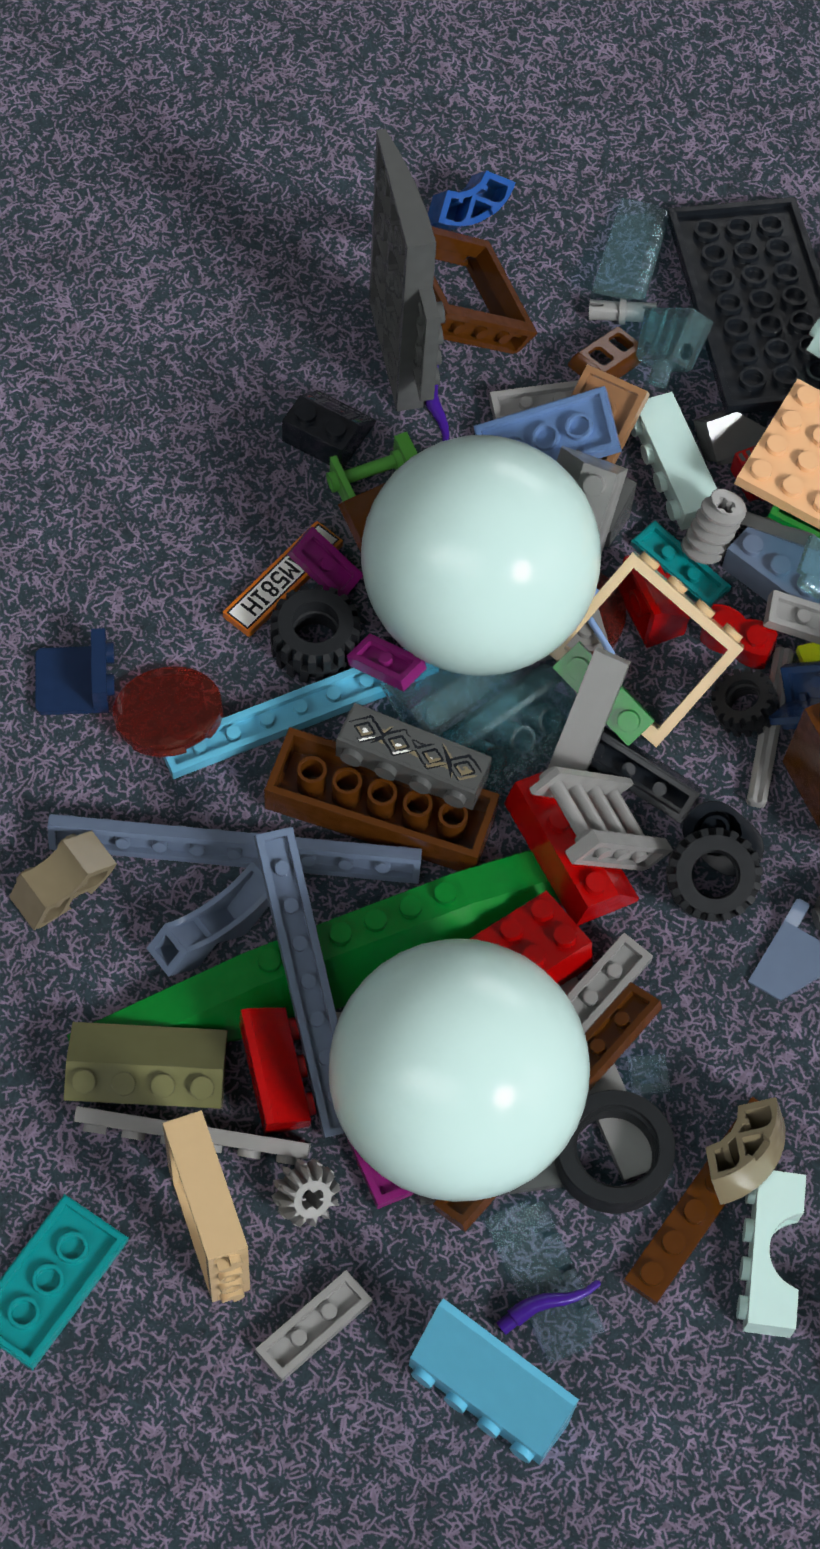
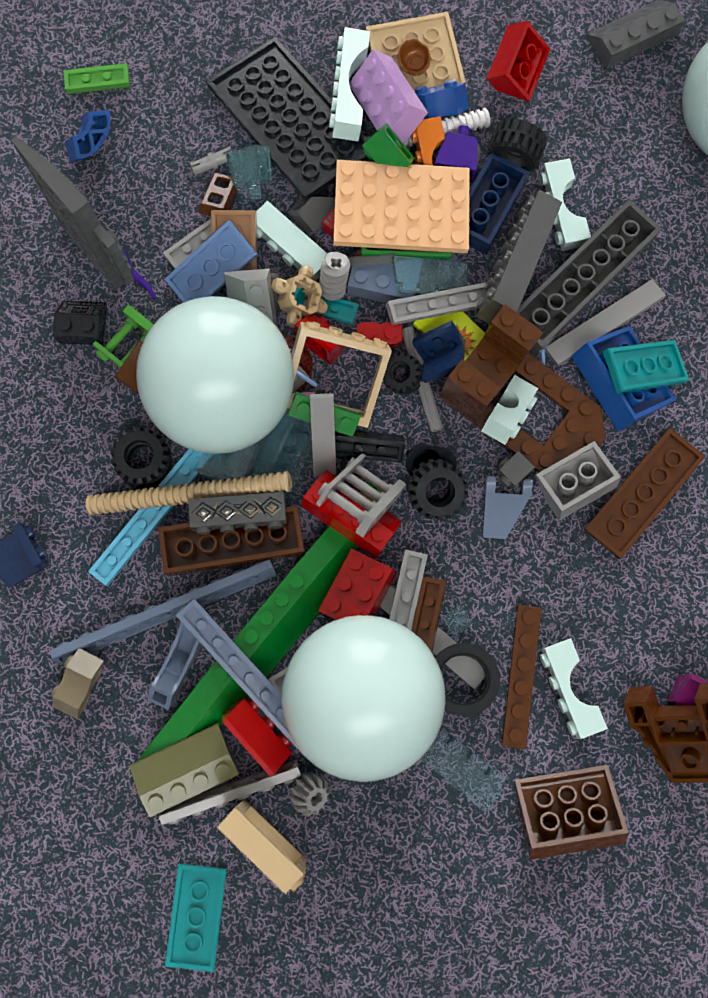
camera: 25 degrees left, 15 degrees up
(167, 711) = (82, 549): clear red tile -> none
(259, 600) = (104, 430): tile -> none
(313, 1326) = (352, 864): light grey plate -> none
(324, 562) = (123, 411): magenta plate -> none
(340, 699) = (173, 495): none -> tan piece
(386, 662) = (188, 459): magenta plate -> none
(491, 1383) = (466, 850): medium azure slope -> none
(508, 324) = (154, 203): reddish brown window -> none
(519, 141) = (96, 78): none -> bright green plate
(532, 1305) = (461, 789): dark purple animal -> none
(631, 250) = (198, 118): clear light blue windscreen -> none
(665, 511) = (312, 292): none -> tan piece
(677, 1426) = (570, 812): none -> reddish brown slope
(748, 1152) = (536, 644): dark tan brick -> none

